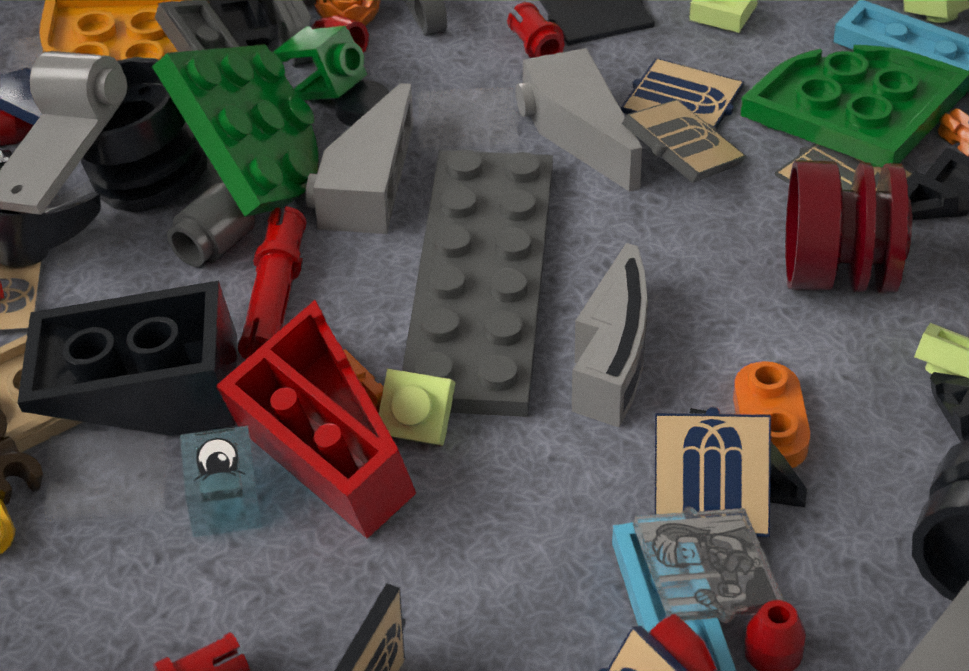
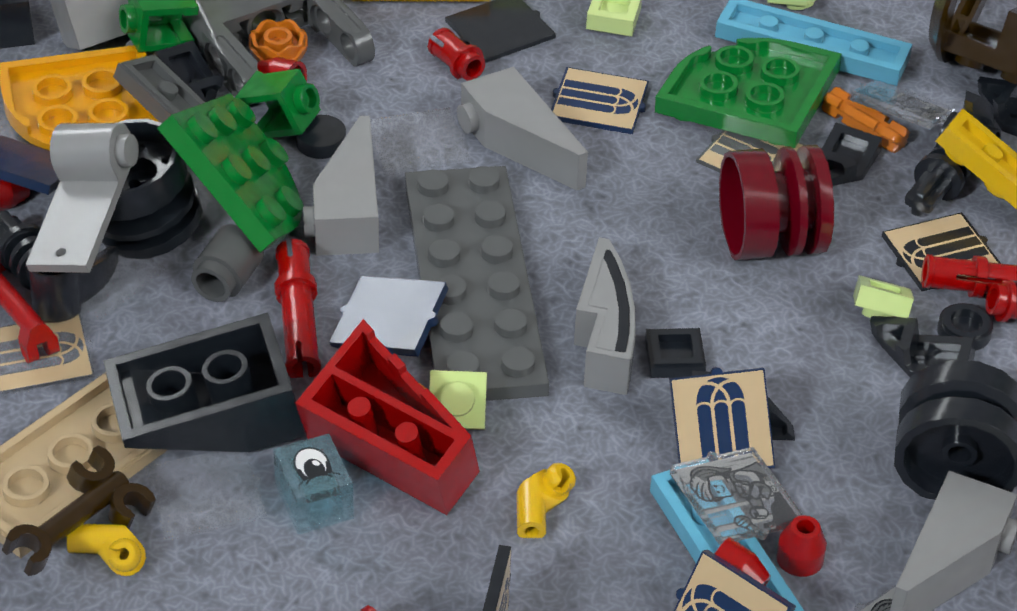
camera: 15 degrees left, 0 degrees up
(375, 301) = (396, 311): none -> piece
(477, 531) = (539, 495): none -> yellow arm
(683, 140) = (617, 140): piece -> none
(687, 384) = (674, 352): none -> black tile
(776, 391) = (748, 348): orange plate -> none

